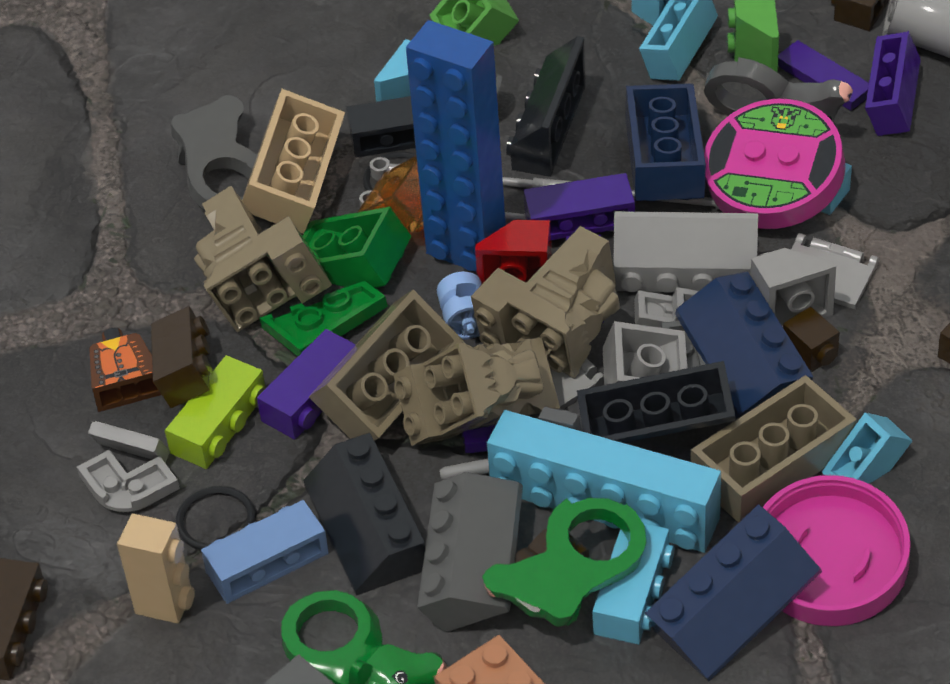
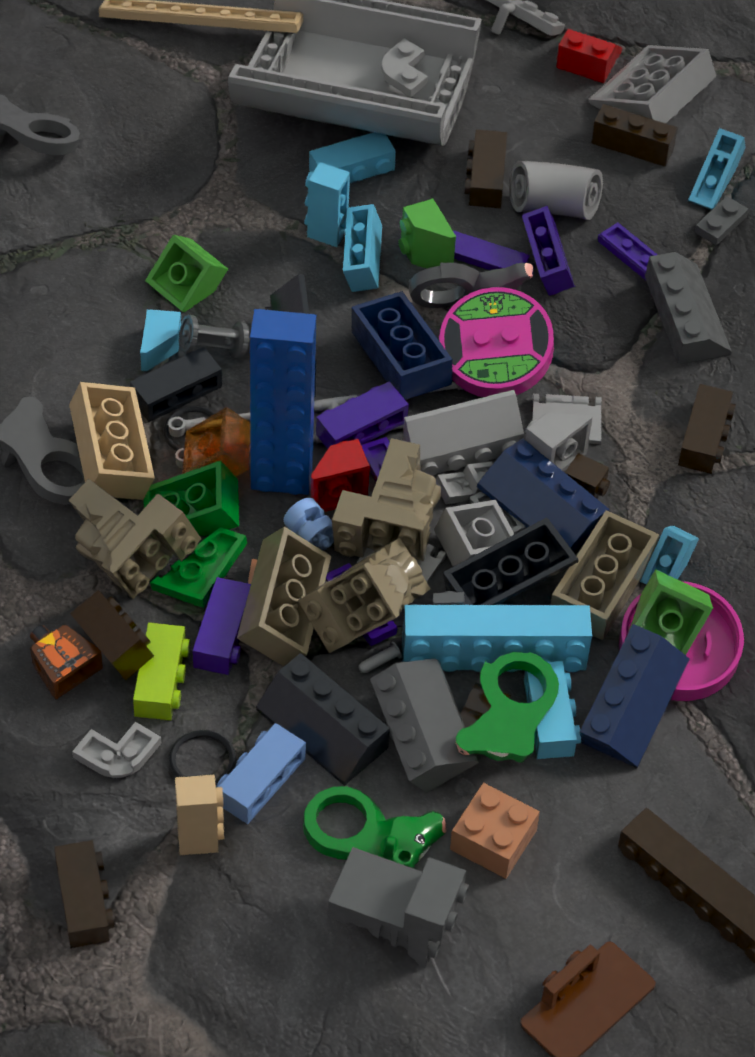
camera: 30 degrees left, 5 degrees up
(128, 441) = (102, 717): light grey tile -> none
(825, 509) = (672, 610): none -> bright green slope

